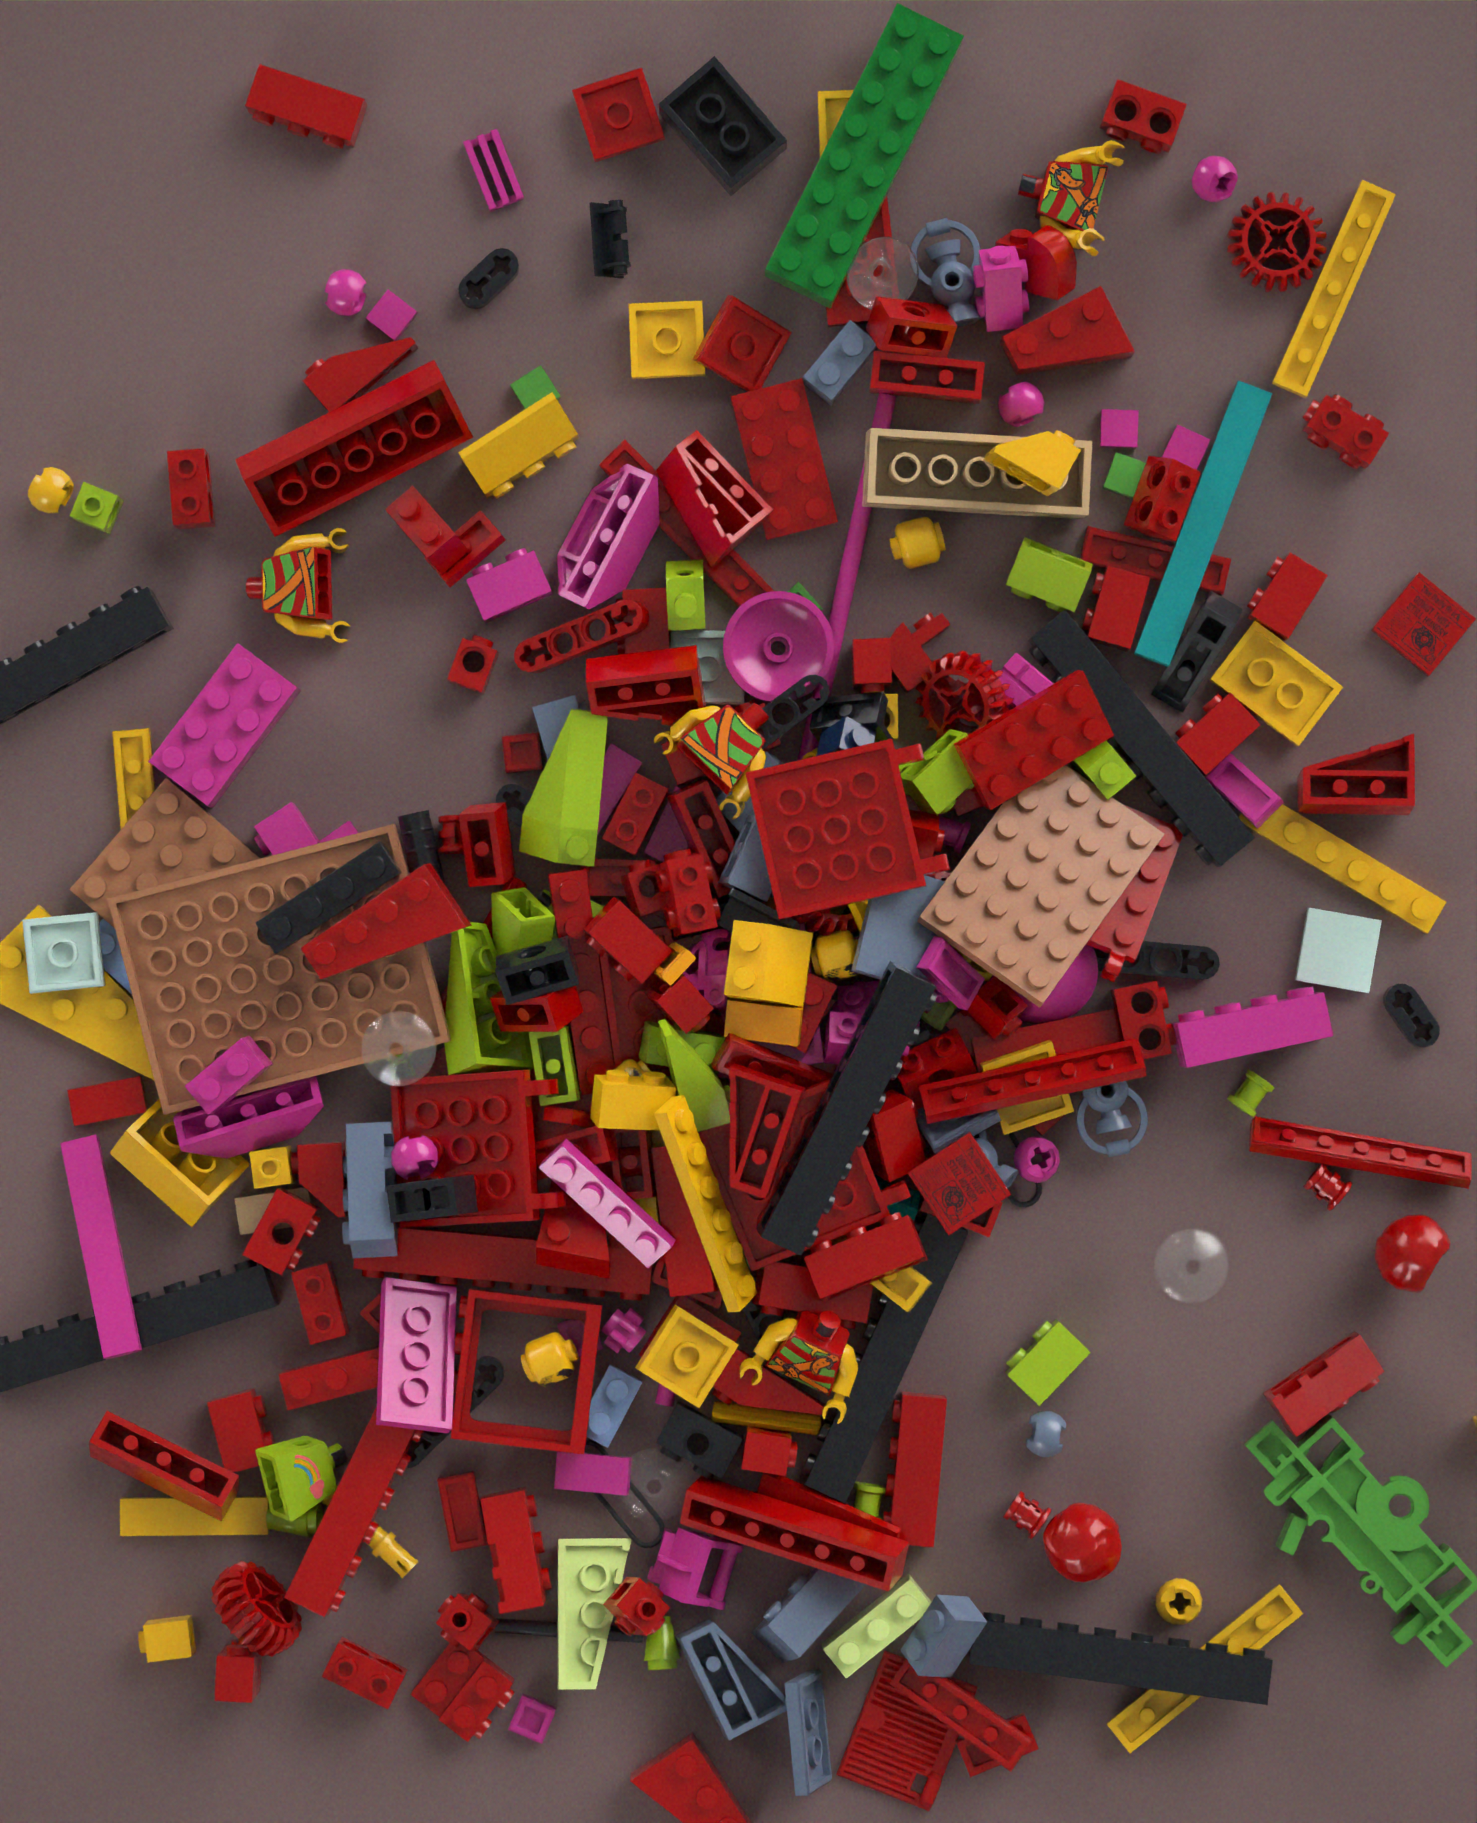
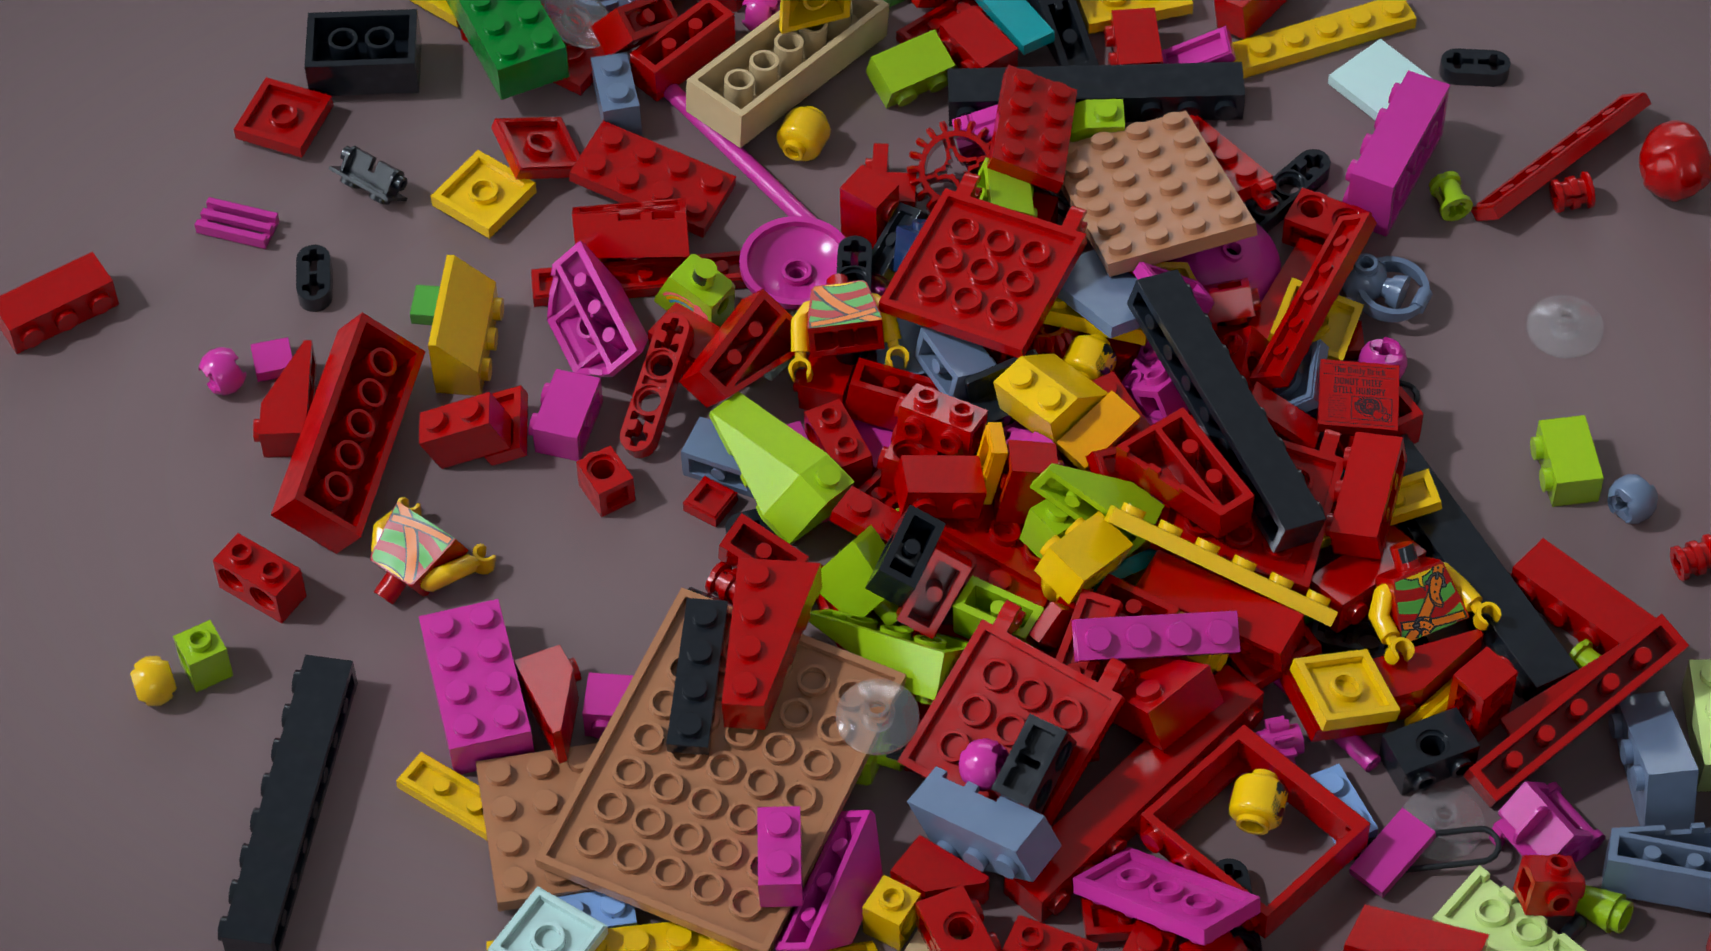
camera: 55 degrees left, 35 degrees down
(256, 789) = (552, 695): none -> slope

